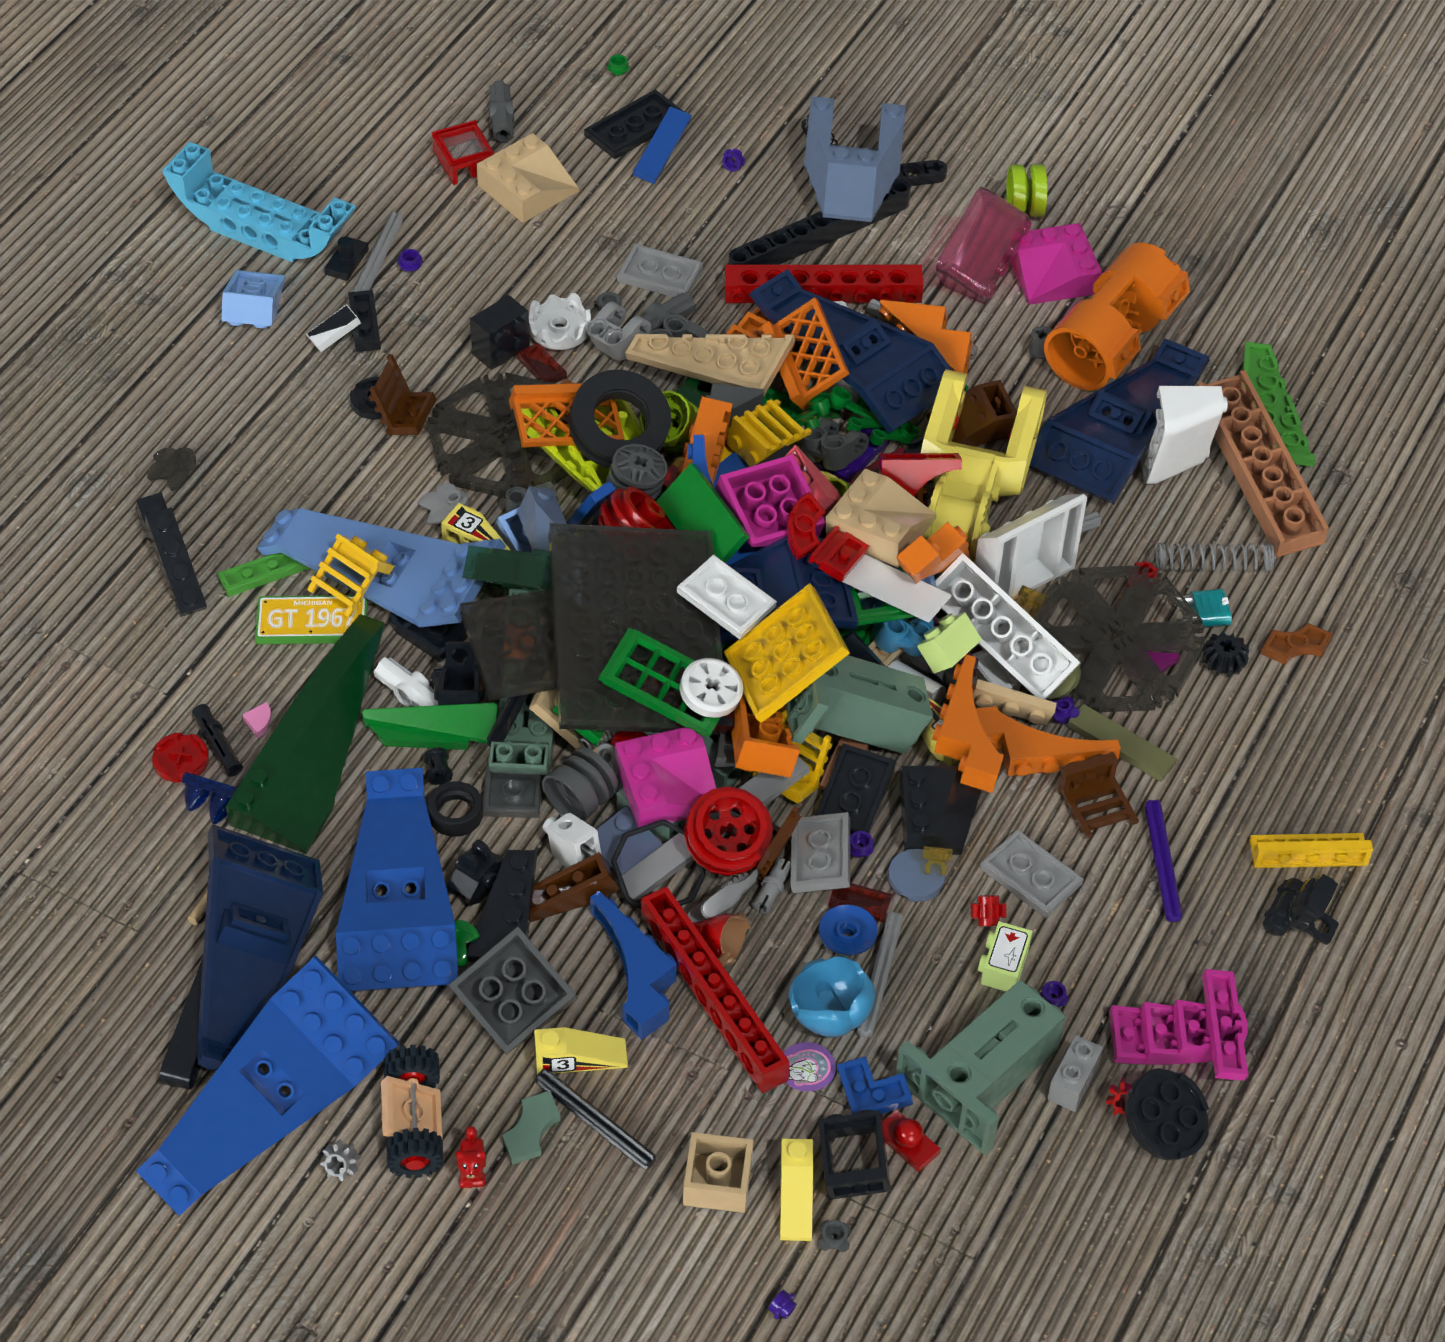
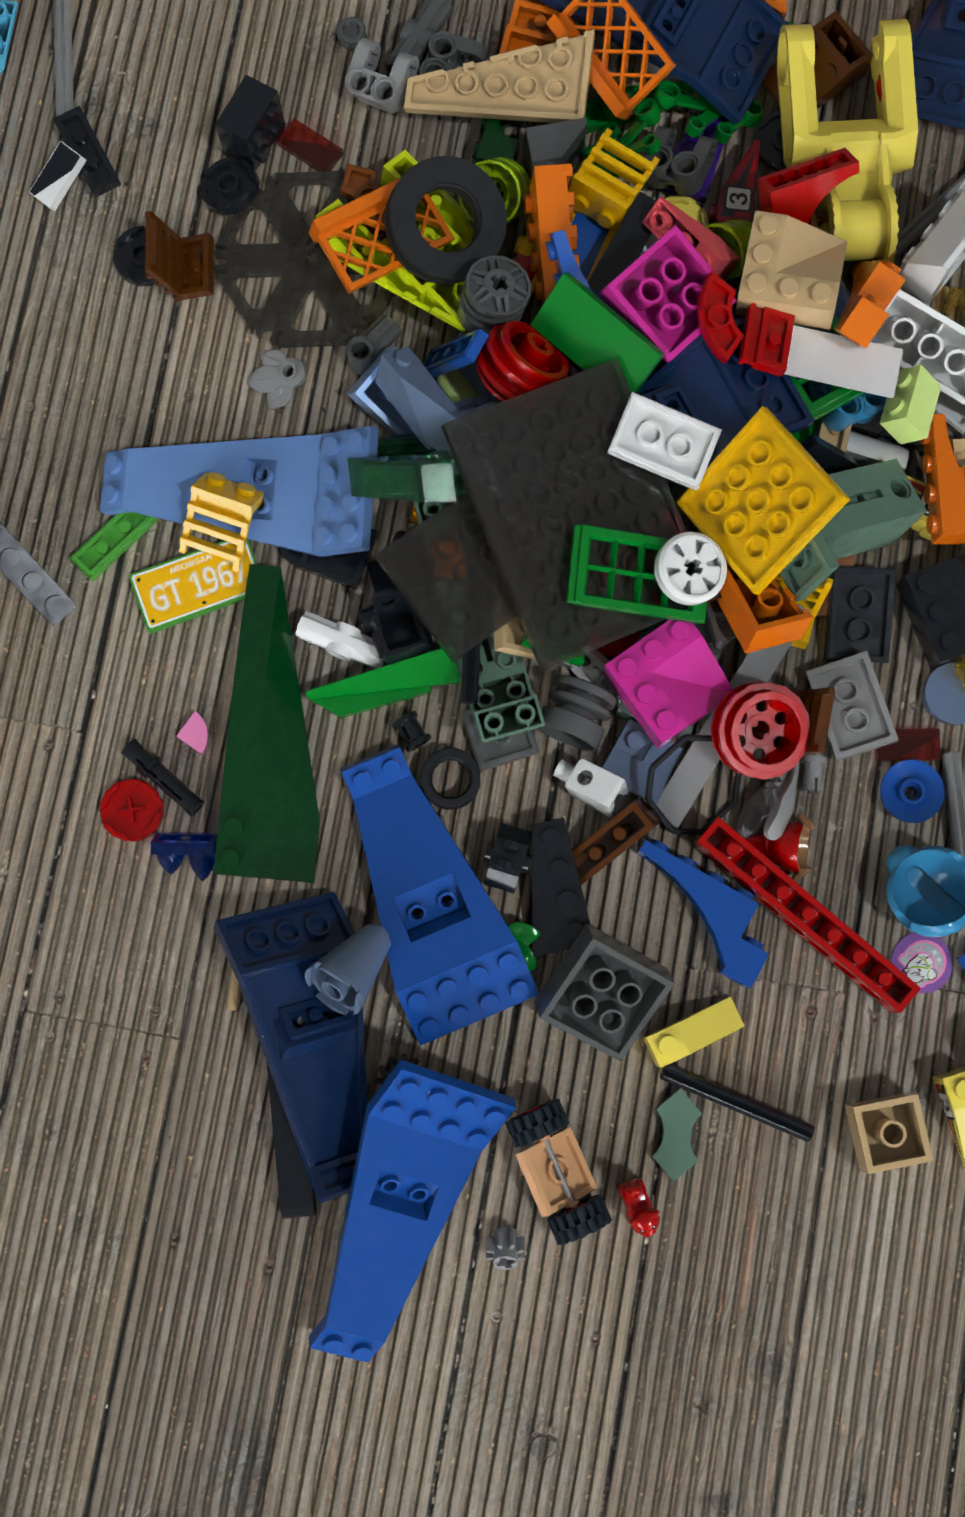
camera: 15 degrees left, 30 degrees up
(303, 893) = (350, 969): none -> sand blue cone
(346, 258) = (29, 65): black tile -> none
(410, 260) = (103, 38): dark purple plate -> none
(465, 370) = (230, 186): none -> black tile
(467, 526) = (326, 411): slope -> none
(559, 311) = (305, 65): white plate -> none
(864, 839) = (891, 672): dark purple plate -> none

